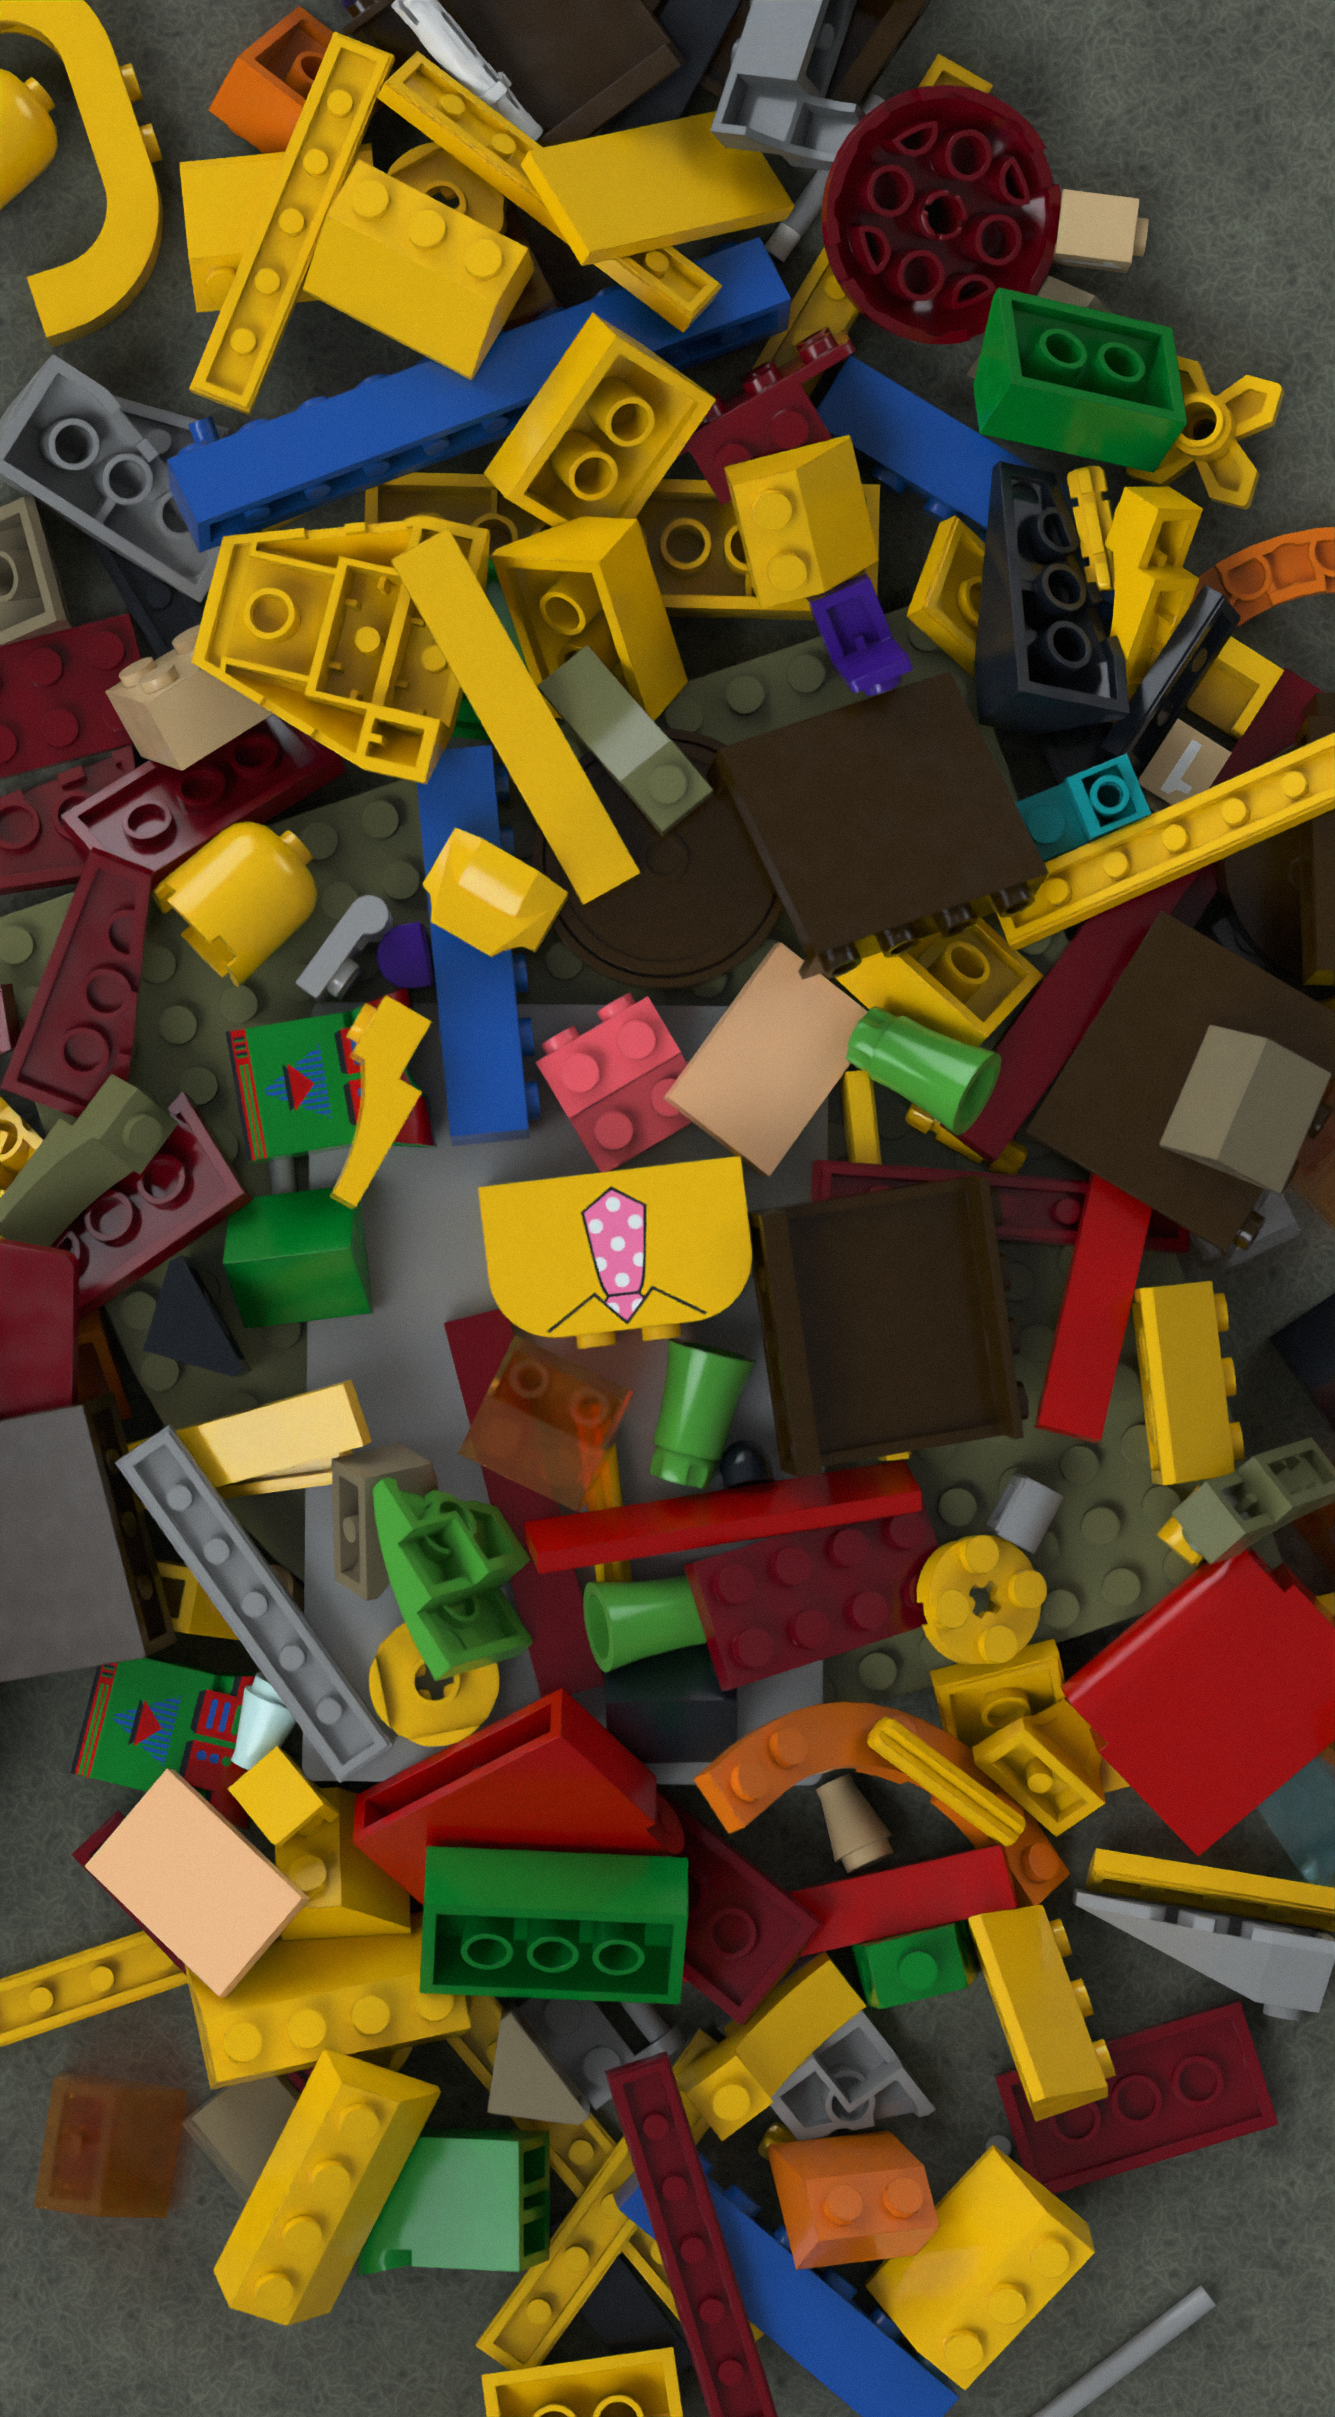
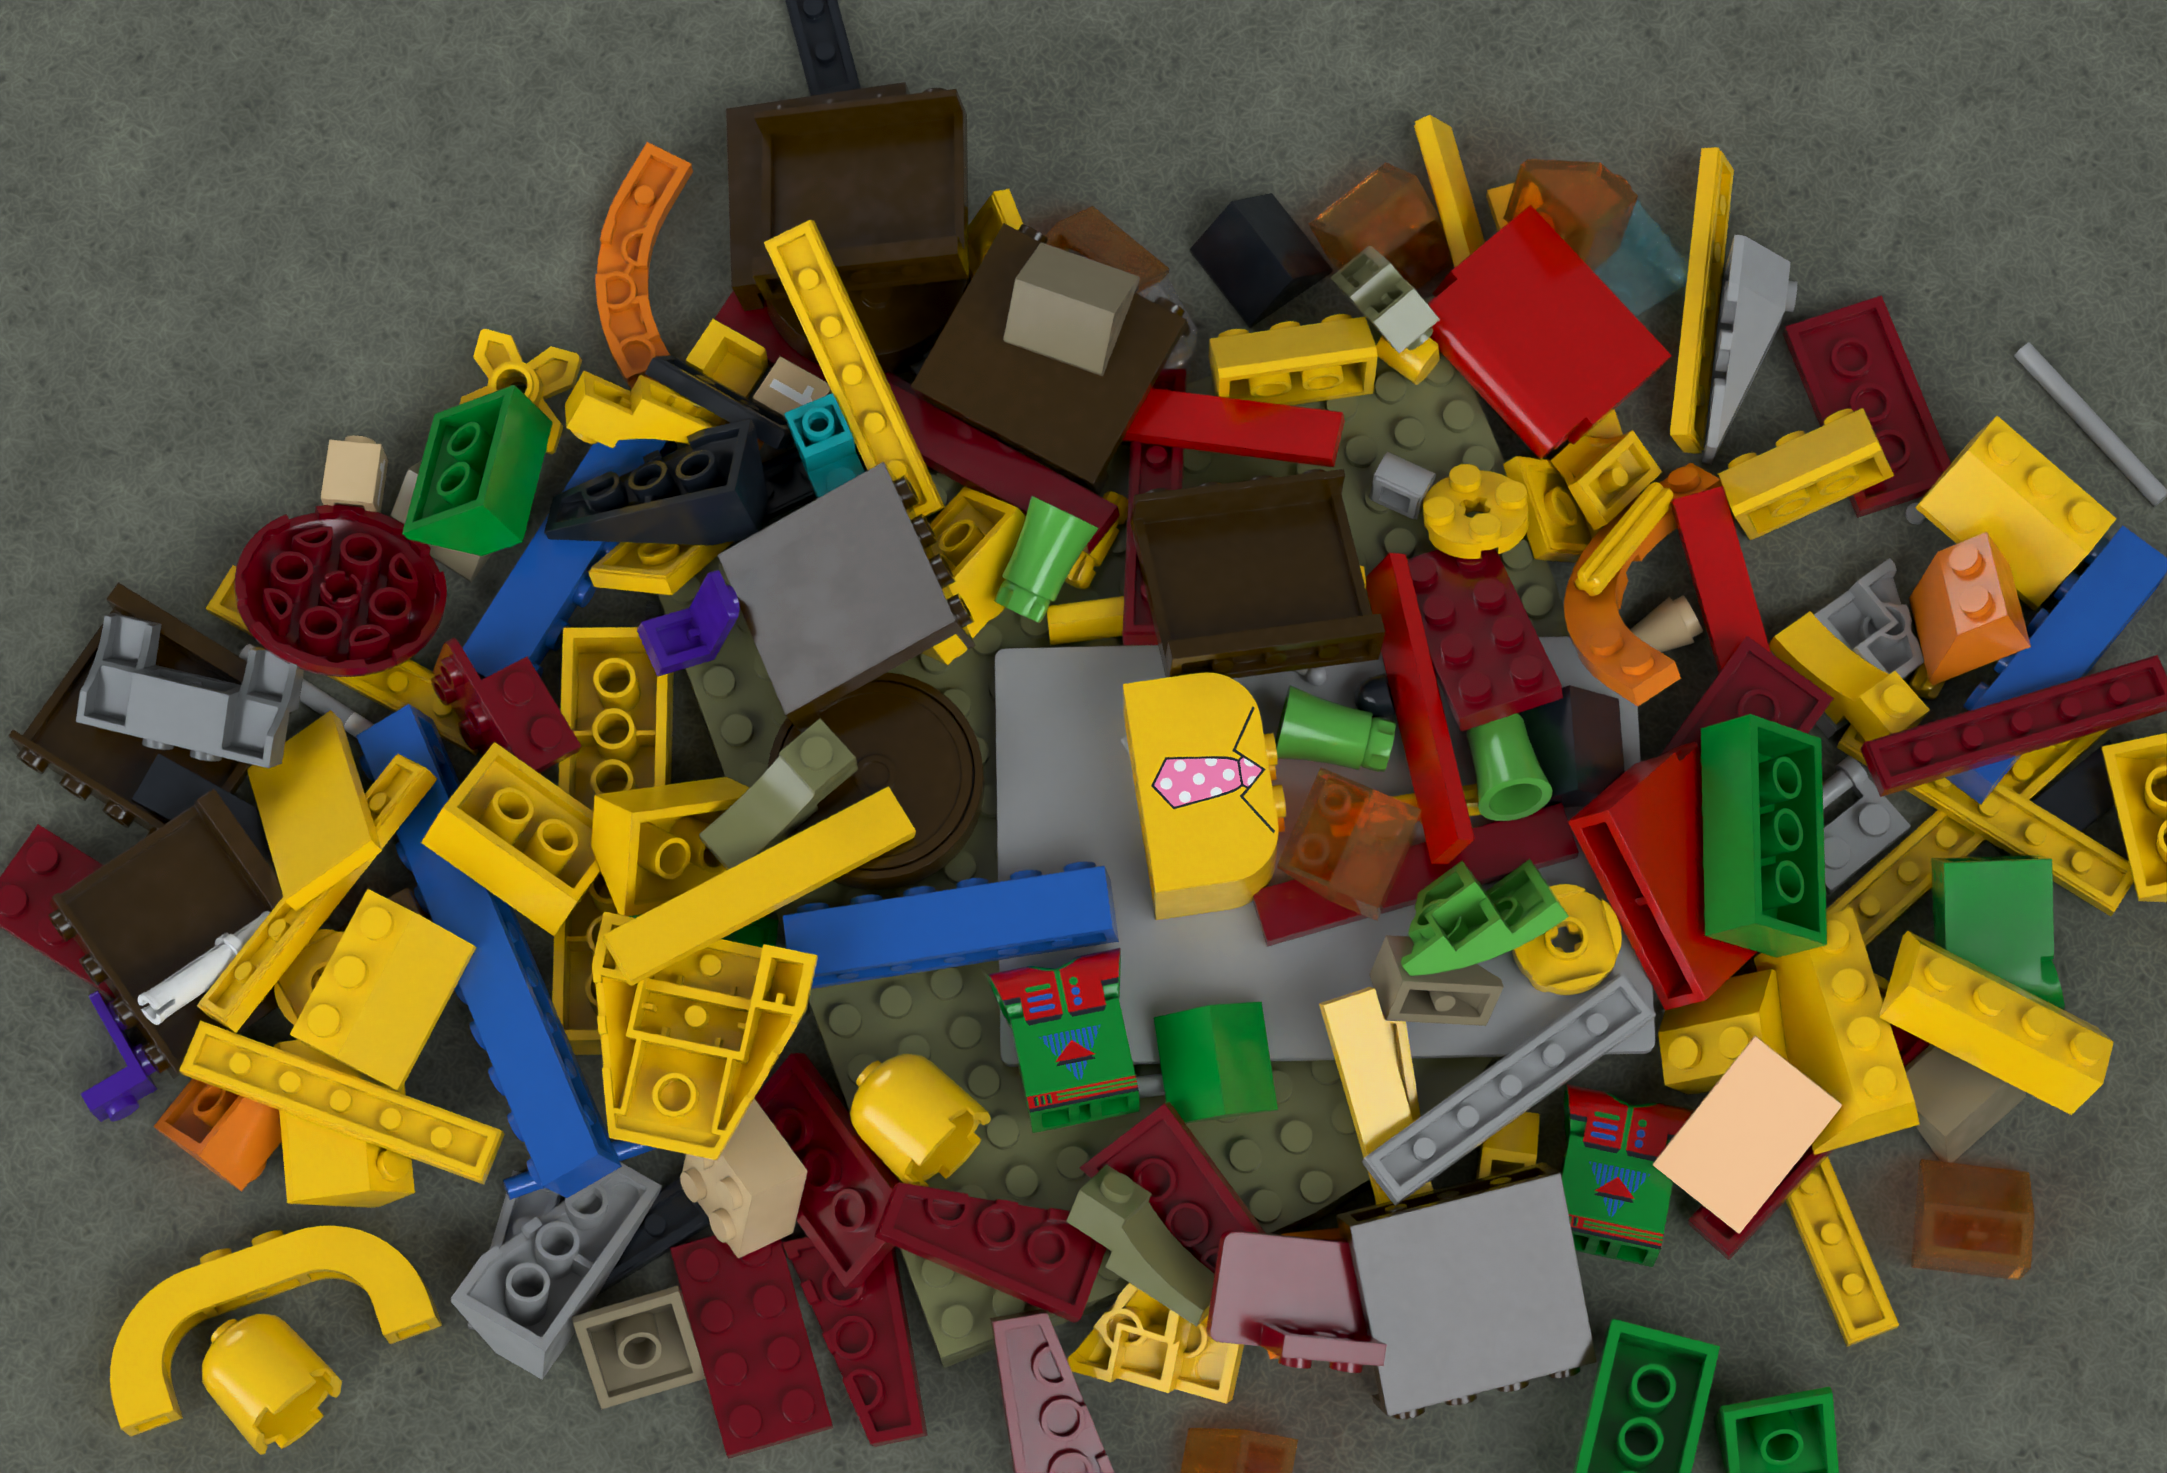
camera: 85 degrees left, 15 degrees down
(190, 1325) = (1276, 1144): black slope -> none
(262, 1723) = (1609, 1089): light aqua cone -> none
(281, 1796) = (1671, 1065): yellow panel -> none
(334, 966) = (965, 1034): light grey plate -> none
(383, 1048) = (1042, 977): yellow slope -> none
(406, 958) = (962, 985): dark purple brick -> none
(490, 896) = (908, 902): yellow slope -> none
(530, 2078) = (1887, 869): dark tan slope -> none
(616, 1081) = (1061, 804): coral plate -> none
(768, 1061) = (1039, 685): light nougat tile -> none
(802, 520) = (595, 680): yellow slope -> none
(914, 1965) = (1777, 574): green torso -> none
(1093, 522) = (596, 461): yellow axle -> none

